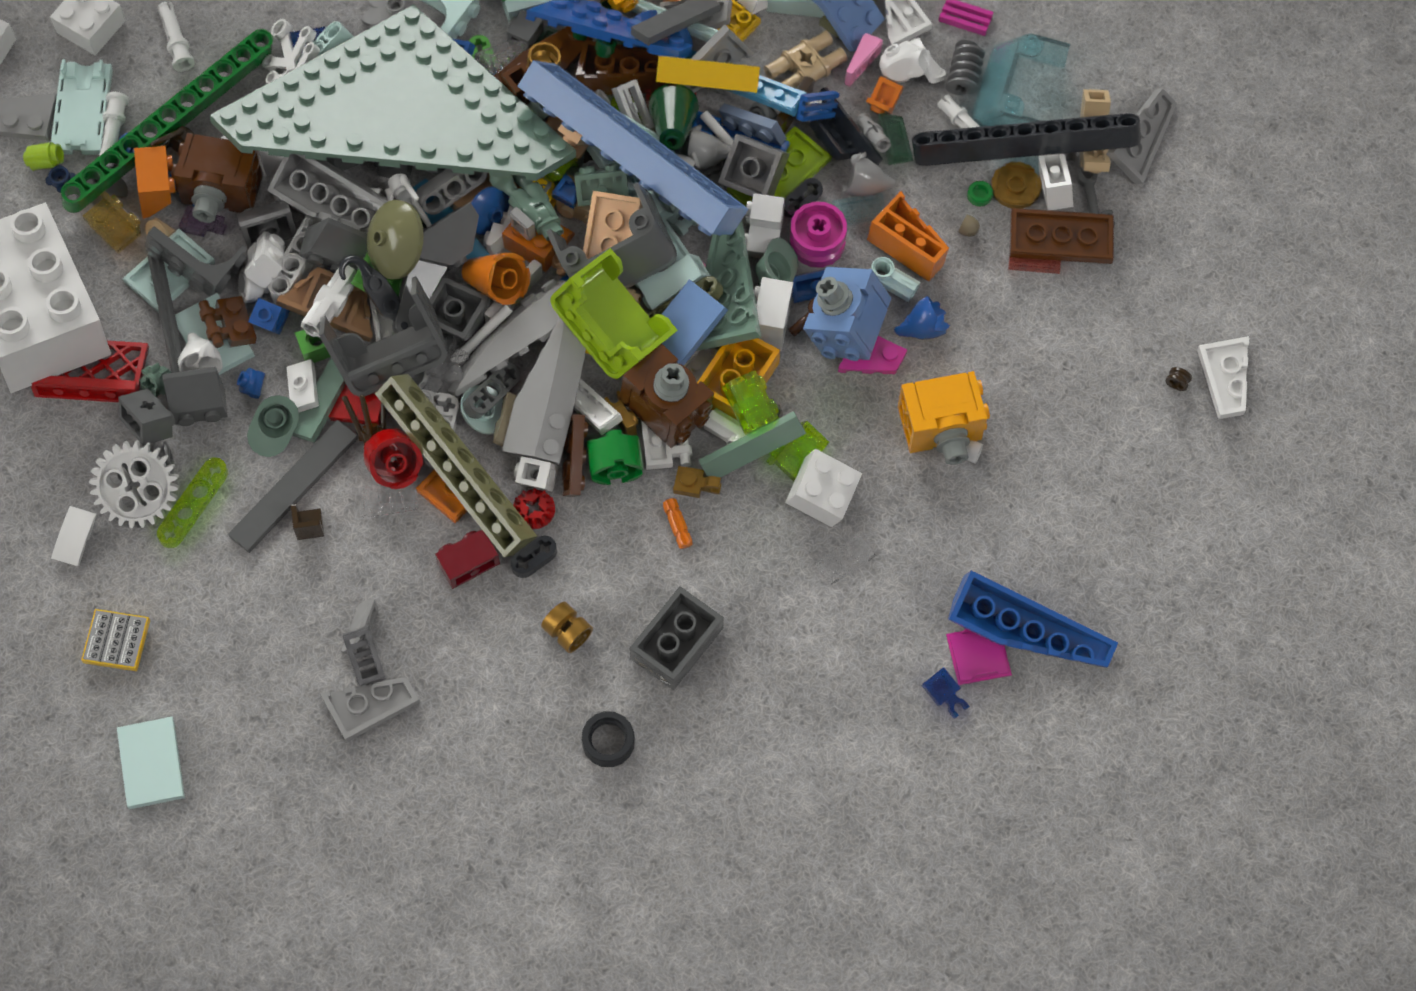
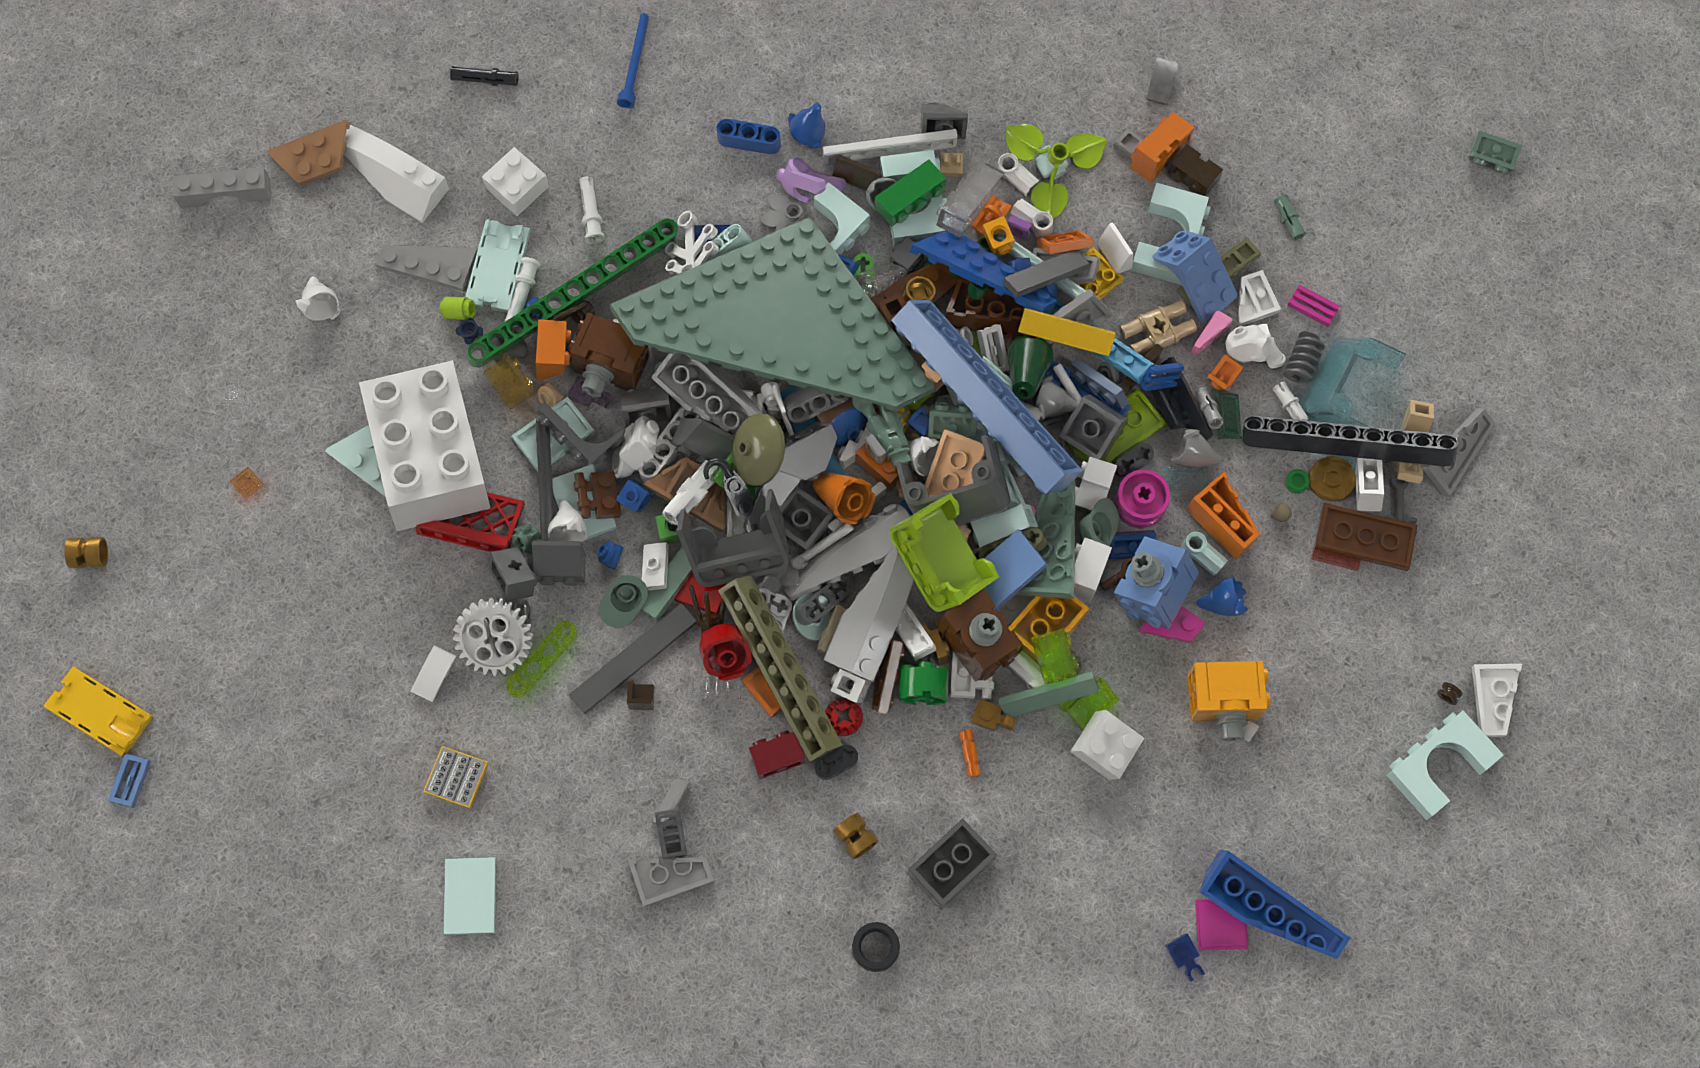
camera: 10 degrees right, 5 degrees up
(574, 223) = (922, 454): none -> white hat
(1194, 418) = (1458, 734): none -> light aqua arch

